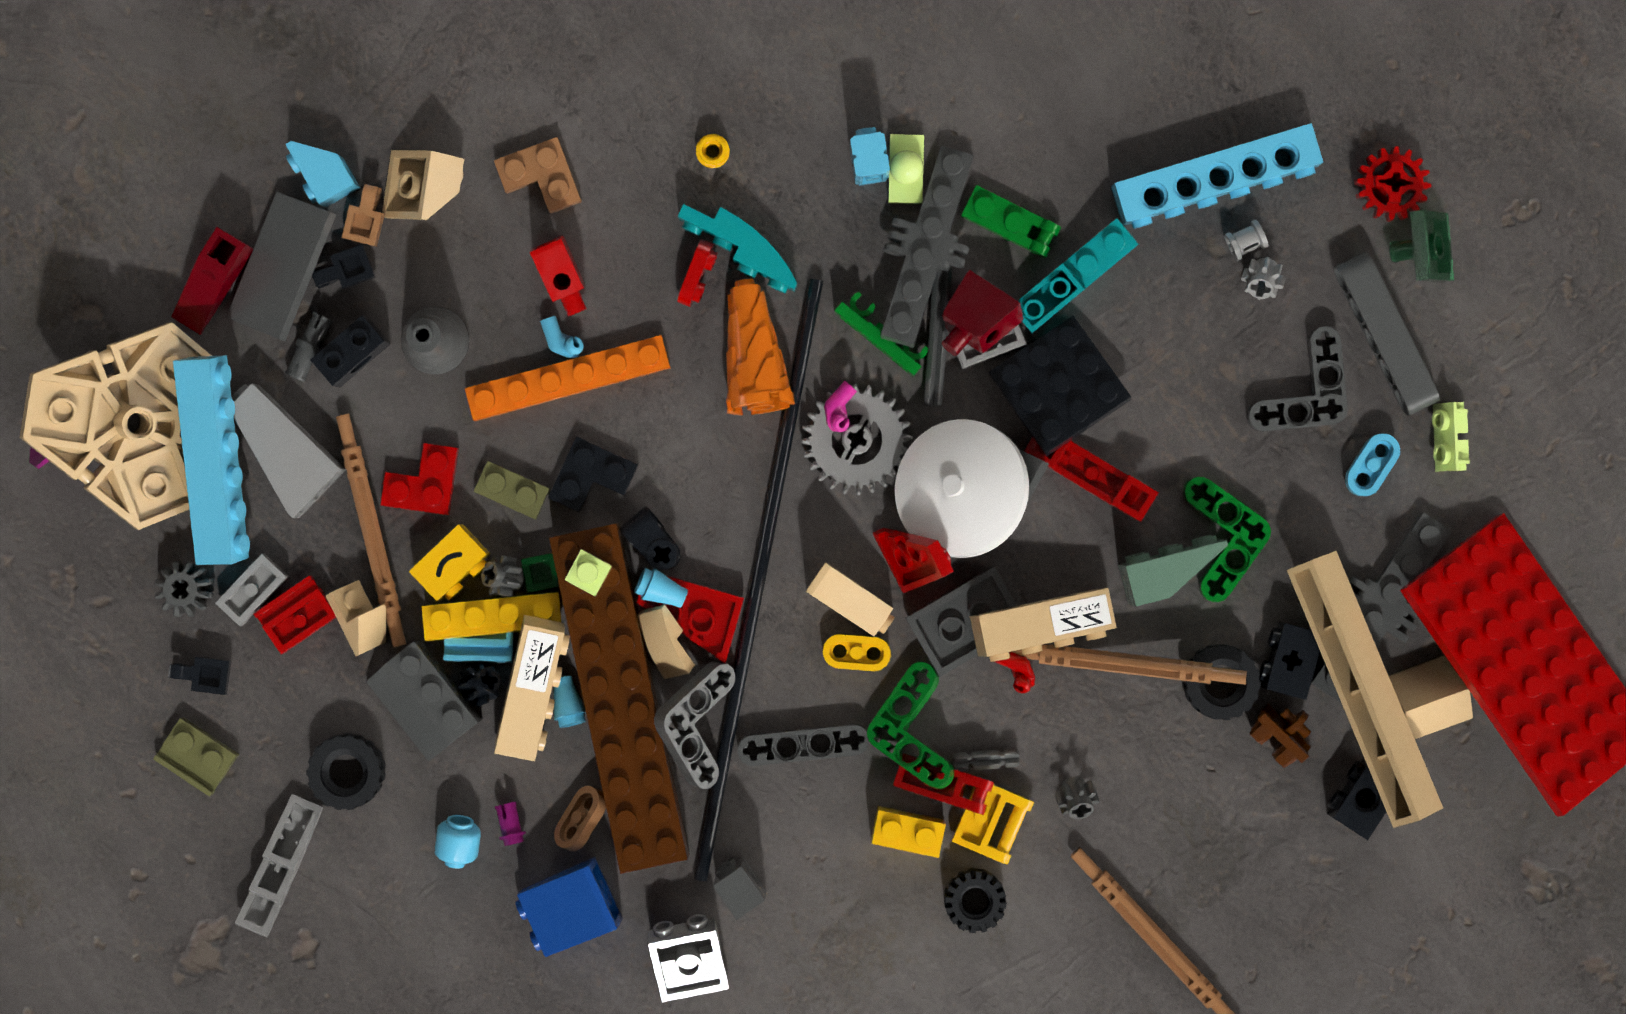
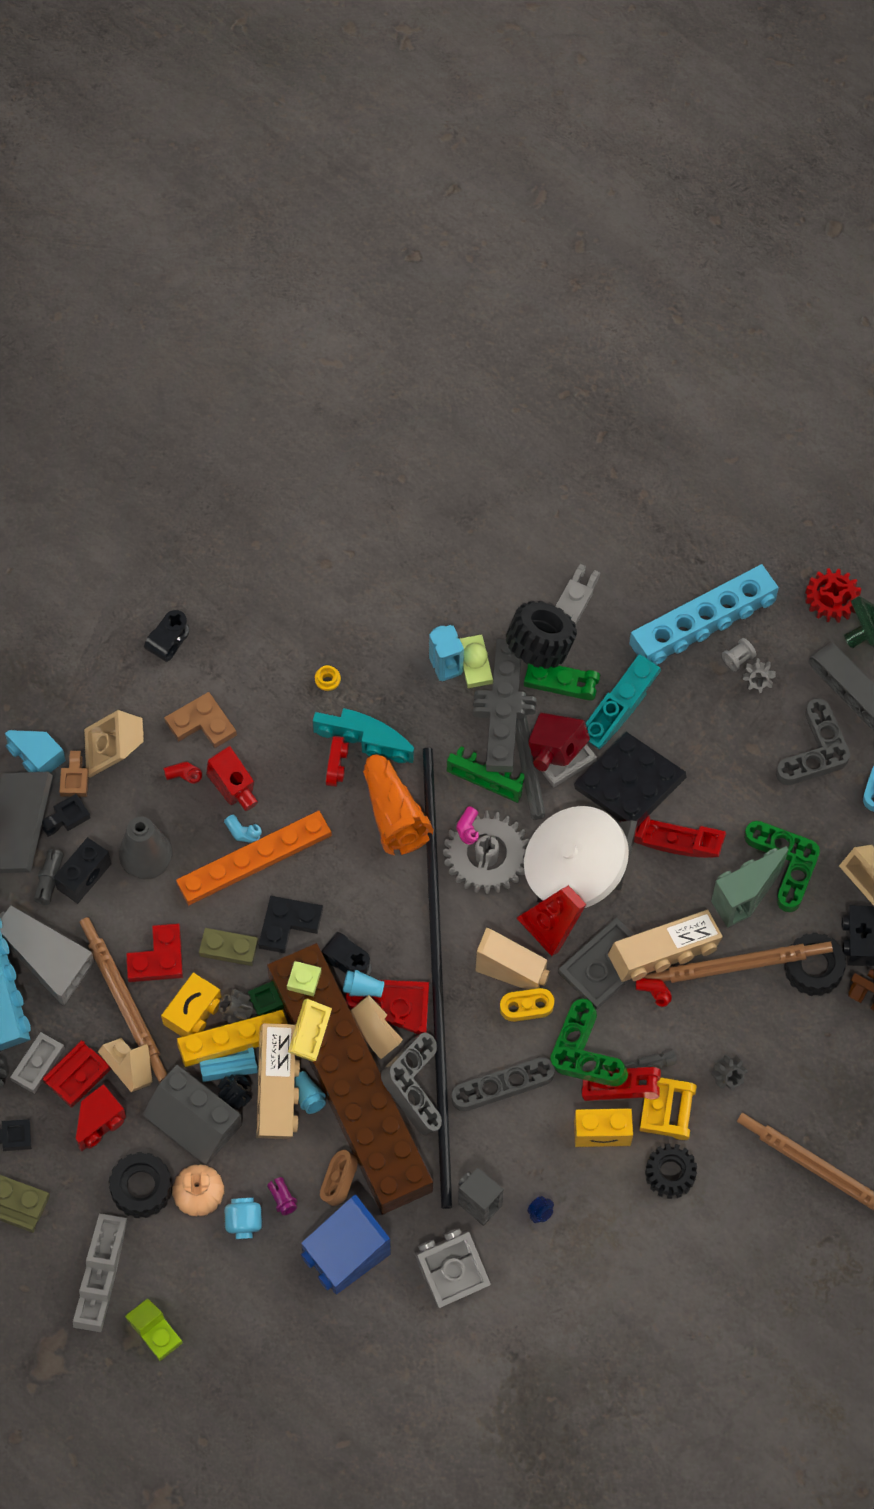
camera: 15 degrees left, 25 degrees down
(310, 674) = (97, 1116): none -> red slope
(328, 945) = (154, 1329): none -> lime slope
(425, 783) = (200, 1199): none -> light nougat hair
(506, 239) = (185, 771): none -> red arm
(518, 49) = (168, 635): none -> black piece
(579, 644) = (309, 1030): none -> light yellow plate
(809, 912) = (540, 1209): none -> clear blue plate
(1016, 148) = (541, 634): none -> black tyre
(1054, 112) = (576, 595): none -> light grey hinge

